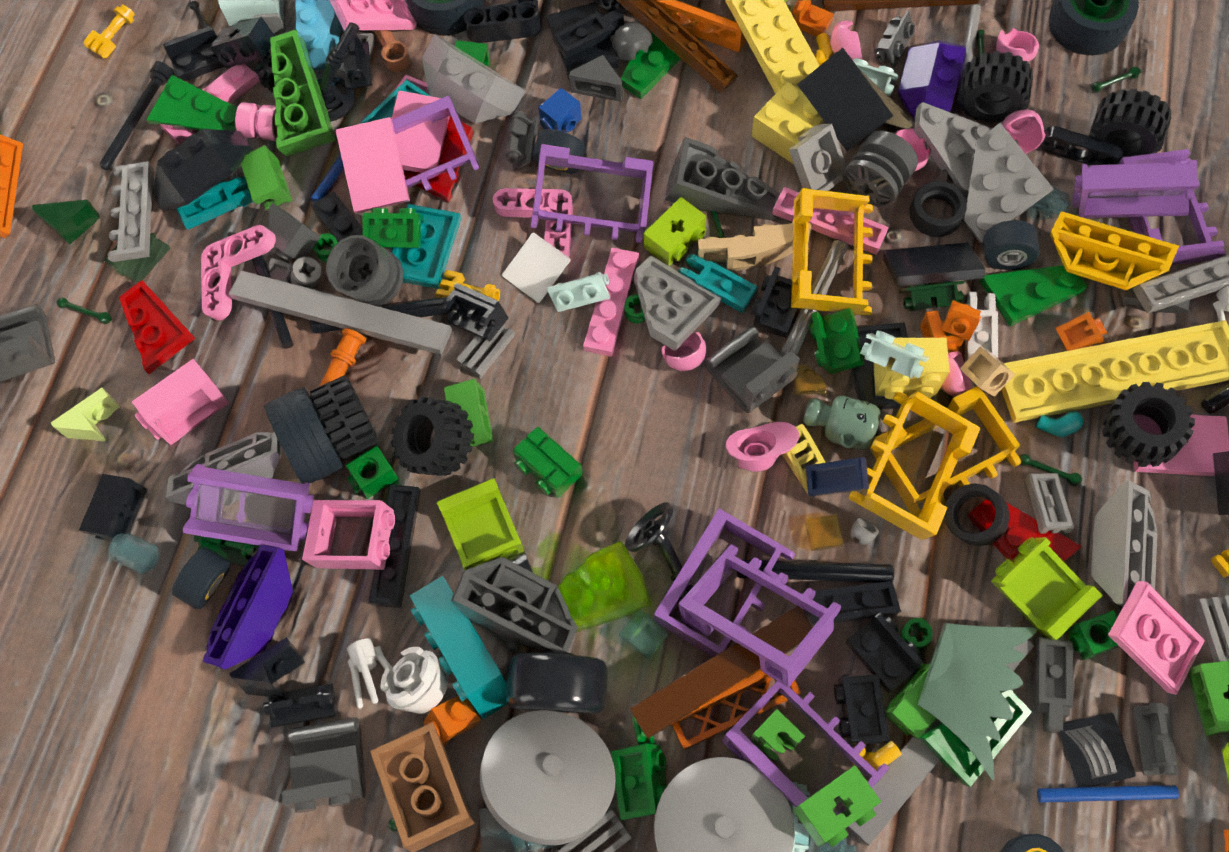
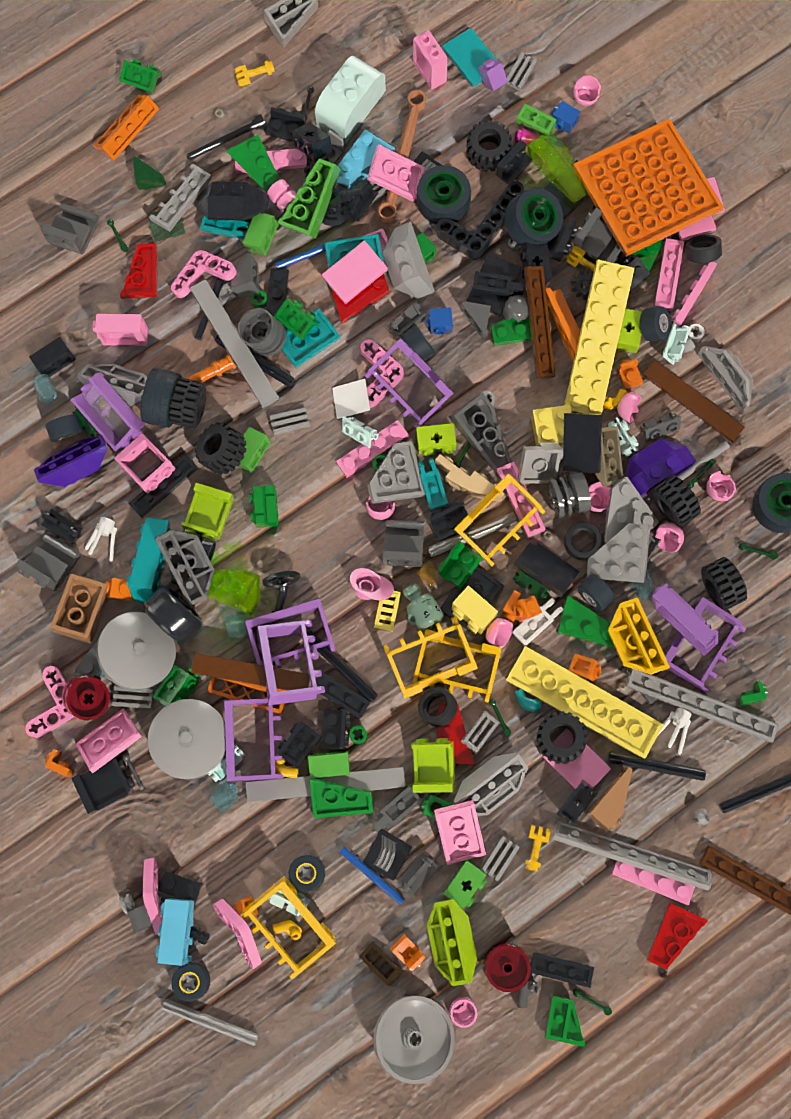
camera: 40 degrees right, 10 degrees up
(81, 419) = (72, 298): yellowish green slope -> none
(261, 673) = (59, 496): black slope -> none
(300, 277) = (237, 308): light grey wheel -> none
(371, 461) = (186, 446): green brick -> none
(372, 165) = (313, 276): bright pink tile -> none
(415, 681) = (115, 559): white cone -> none
(436, 111) = (311, 271): medium lavender hinge -> none
(456, 277) = (314, 394): yellow hinge -> none
(475, 312) = (297, 399): black hinge -> none
(774, 733) = (247, 719): bright green hinge -> none
(823, 532) = (362, 652): clear yellow tile -> none
(837, 477) = (388, 632): dark blue tile -> none
(854, 794) = (232, 764): bright green brick -> none
(864, 531) = (384, 668): light grey hinge -> none
(906, 357) = (459, 589): light aqua hinge -> none
(967, 682) = (357, 771): sand green piece -> none
(987, 371) = (511, 645): tan brick -> none
(1057, 142) = (693, 572): black beam -> none

